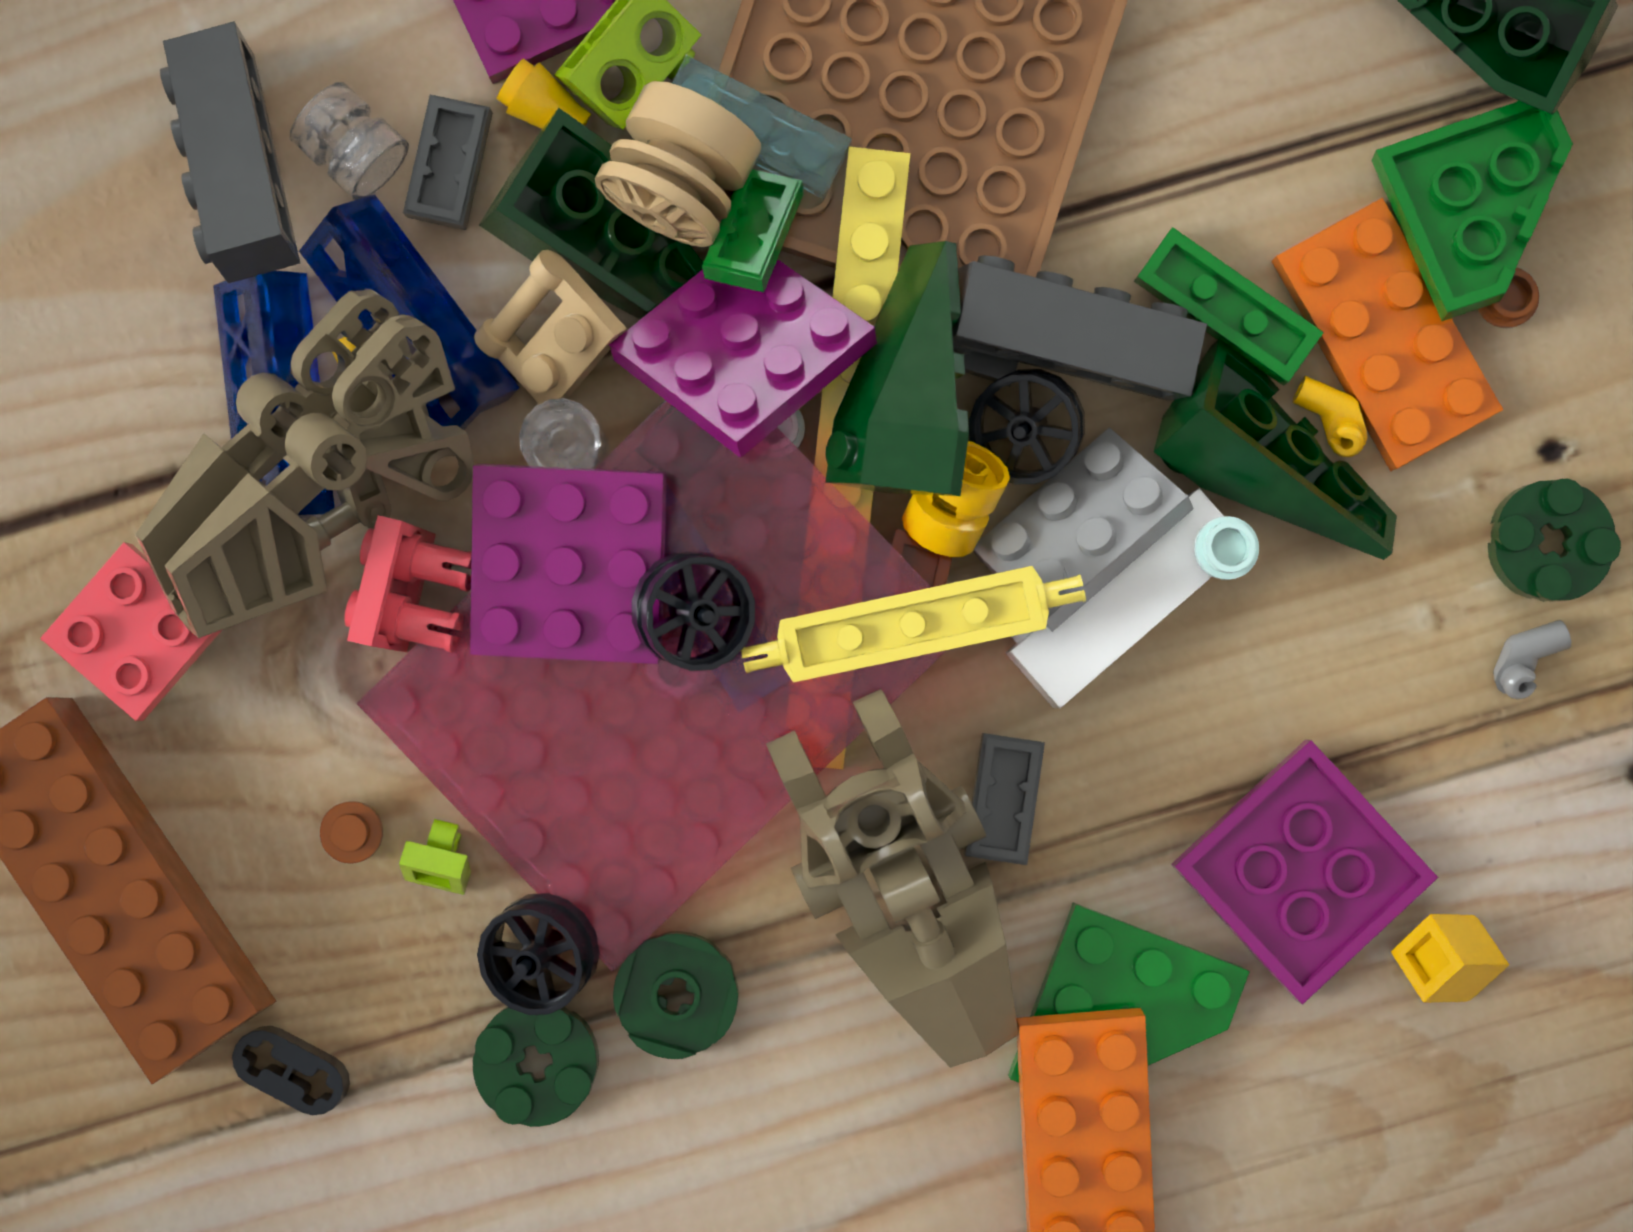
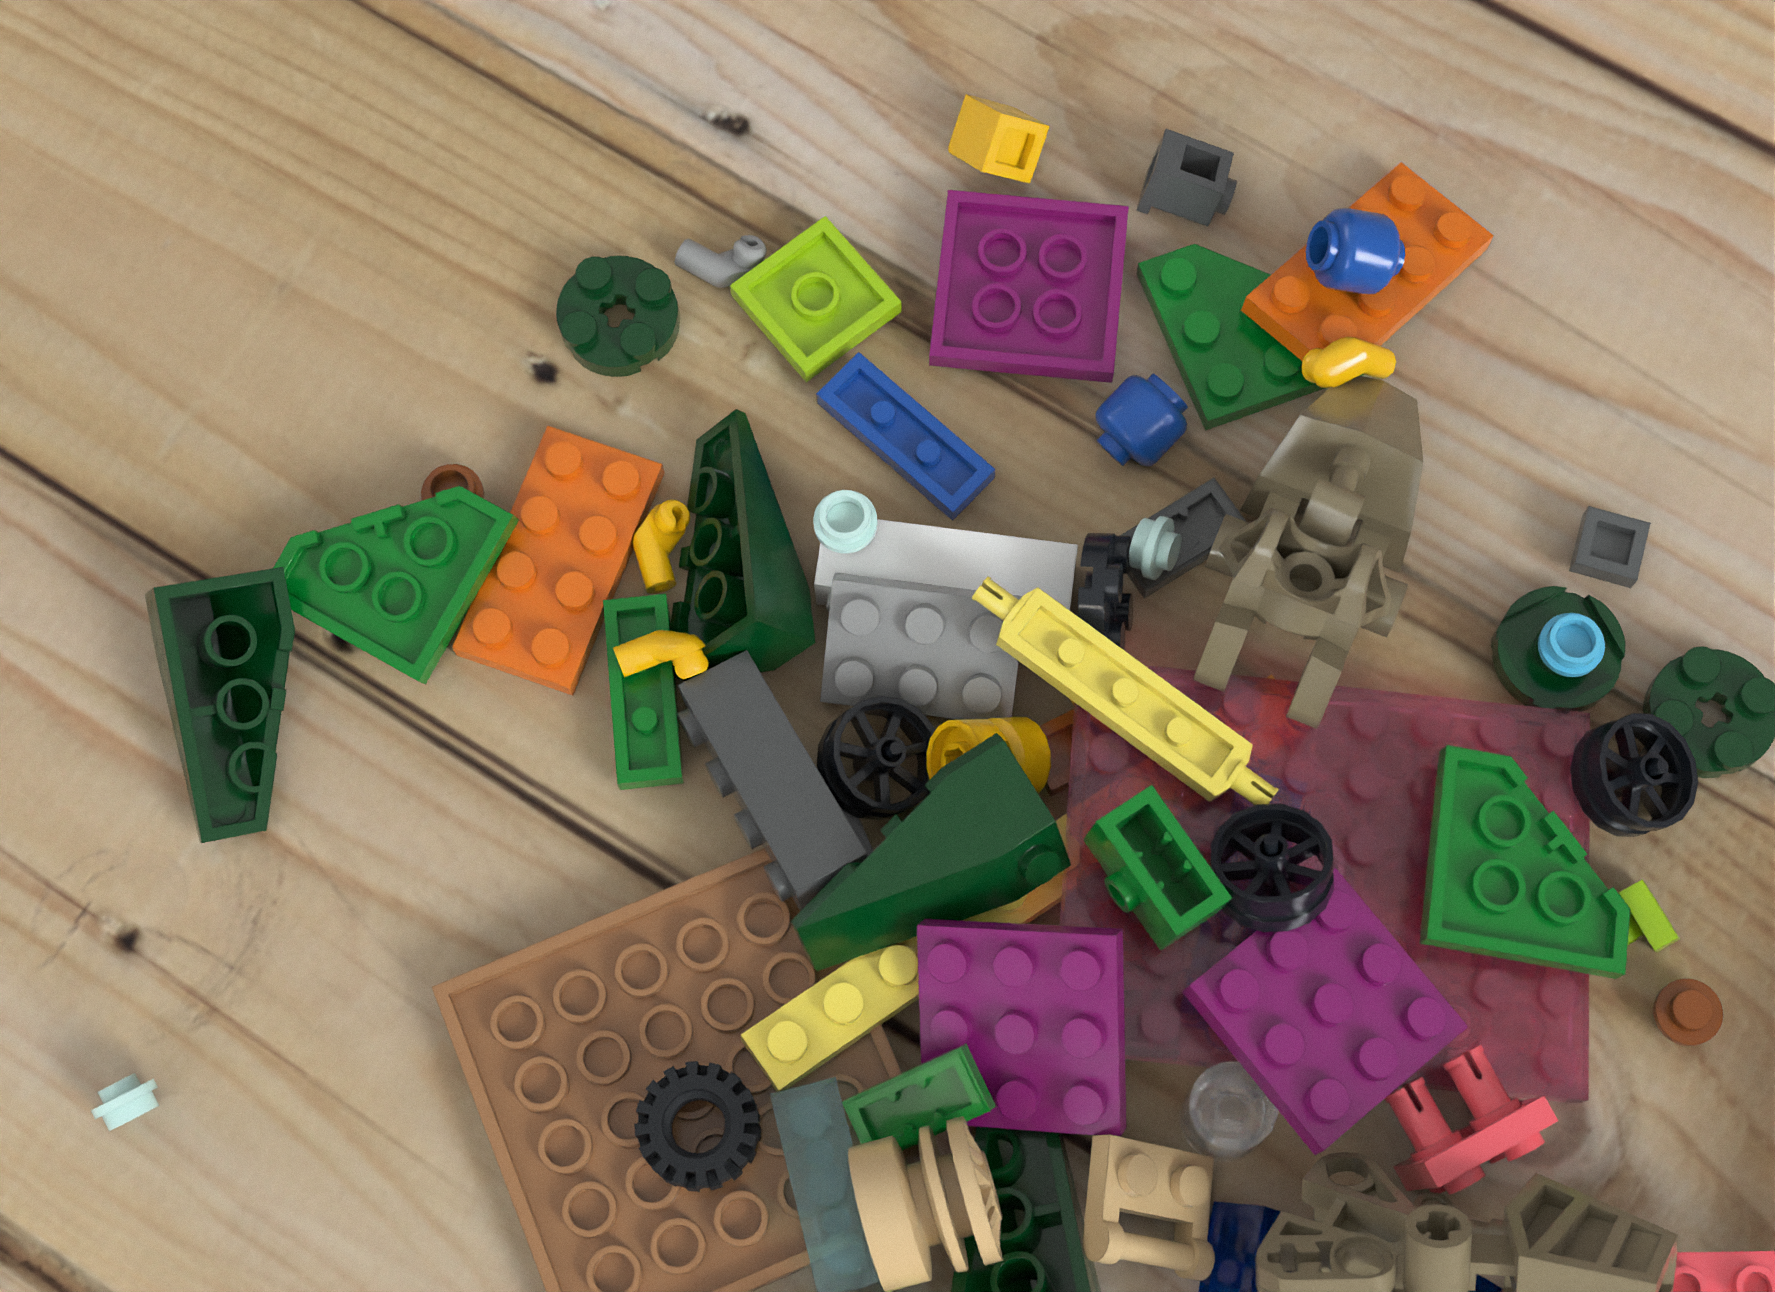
camera: 125 degrees left, 15 degrees down
(543, 790) = (1513, 876): none -> green plate
(668, 1000) = (1571, 644): none -> medium azure plate
(717, 1109) = (1609, 547): none -> dark grey plate
(762, 521) = (1155, 868): none -> green brick
(879, 35) = (663, 1102): none -> black tyre
(1003, 693) = (1102, 598): none -> black plate
(1008, 762) = (1154, 547): none -> light aqua plate
(1023, 1037) = (1345, 361): none -> yellow arm
(1105, 1126) = (1355, 251): none -> blue head
(1119, 852) = (1141, 420): none -> blue head
(1244, 340) = (662, 646): none -> yellow arm
(1262, 668) = (905, 436): none -> blue plate
(1284, 1072) = (1188, 179): none -> dark grey brick
(1435, 698) = (815, 298): none -> lime plate

